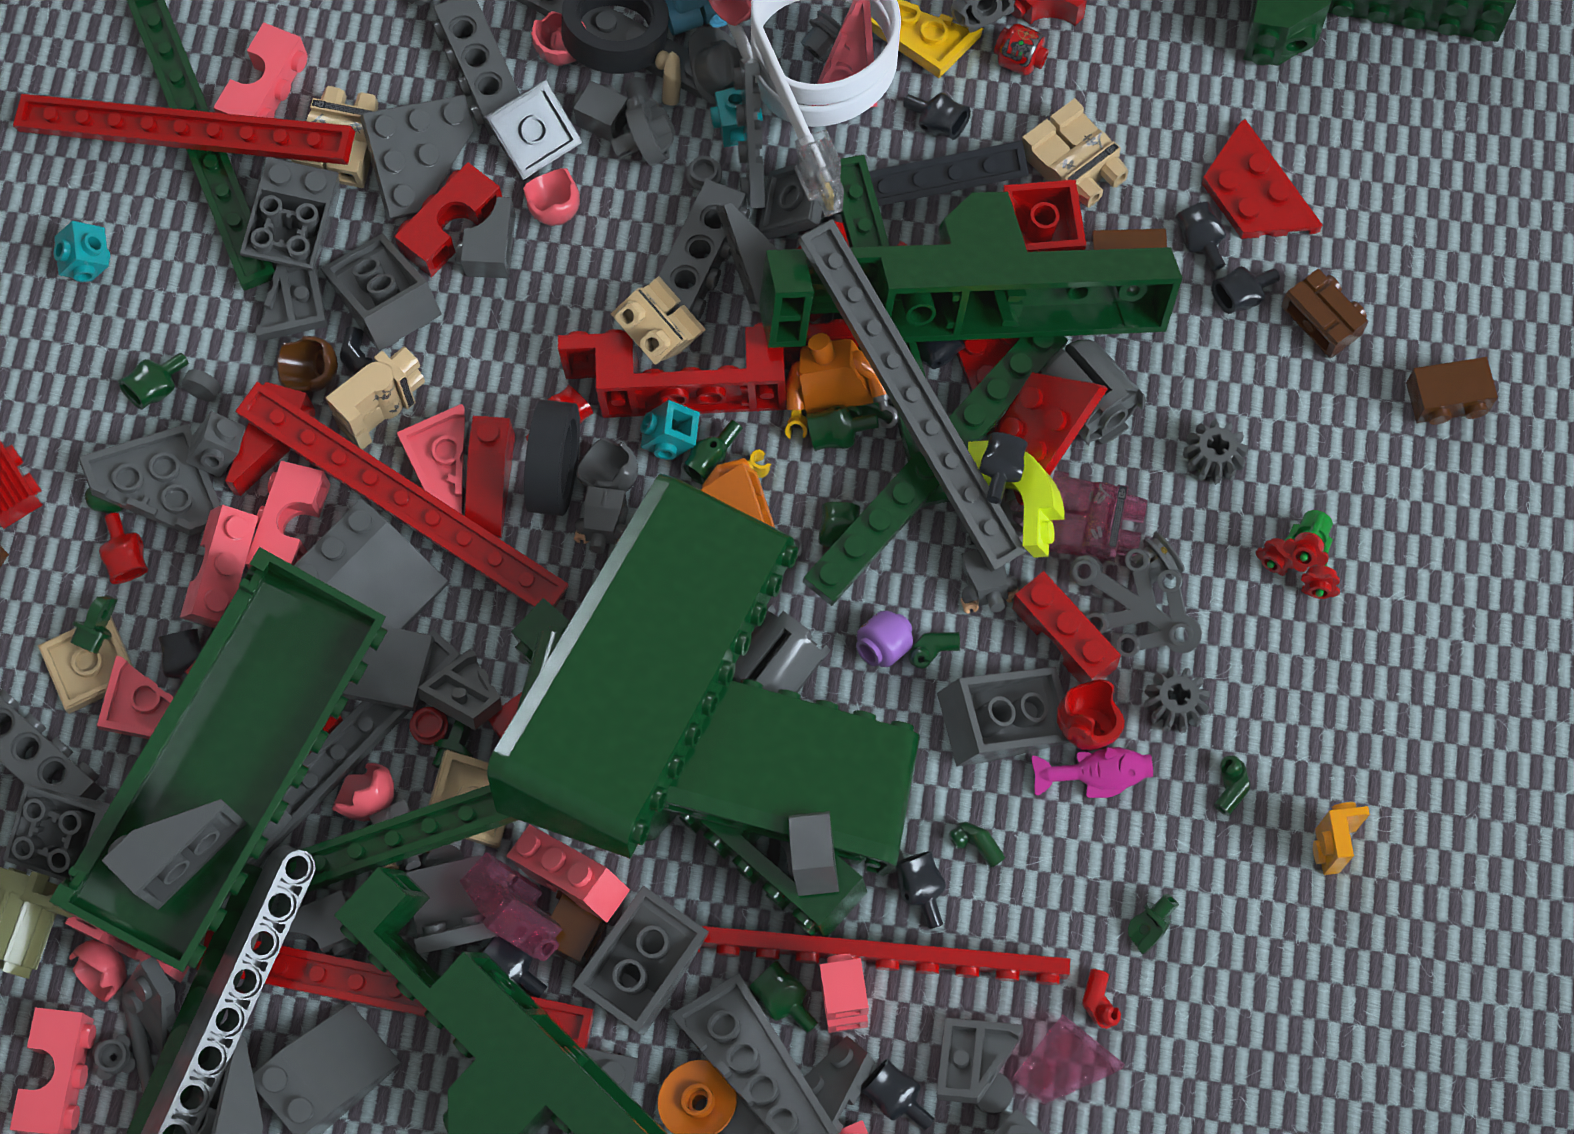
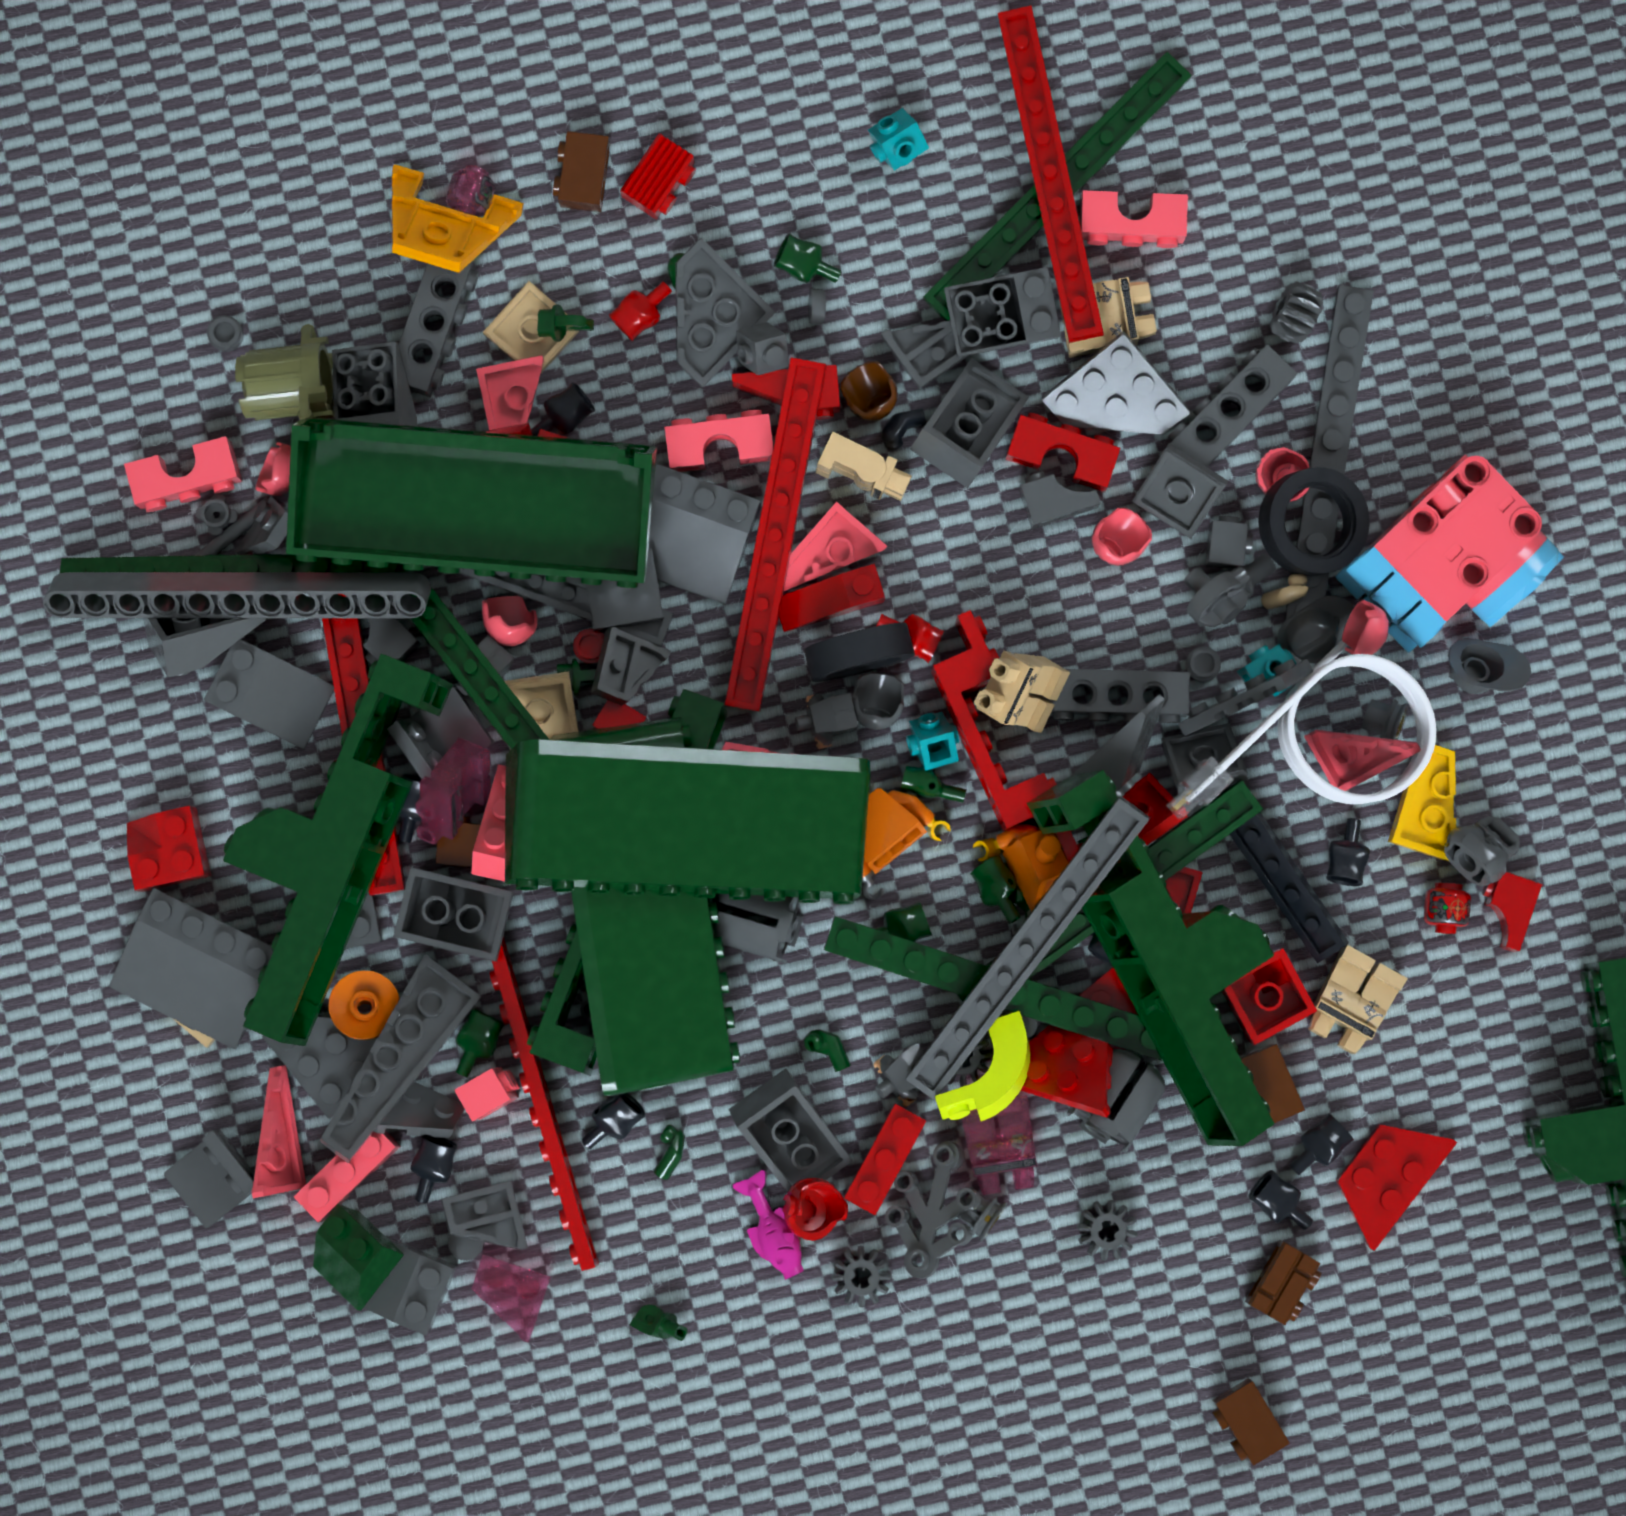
camera: 65 degrees right, 15 degrees up
(169, 852) = (362, 490): dark grey slope -> none
(226, 550) = (675, 404): coral arch -> none
(813, 853) = (581, 1025): dark grey slope -> none
(884, 639) = (817, 1004): medium lavender head -> none
(1002, 463) = (998, 1051): black piece -> none
(1096, 1002) = (573, 1301): red arm -> none
(1235, 782) = (808, 1352): dark green arm -> none
(1305, 547) = (1030, 1344): red plant -> none
(1333, 842) = (779, 1452): light orange bracket -> none

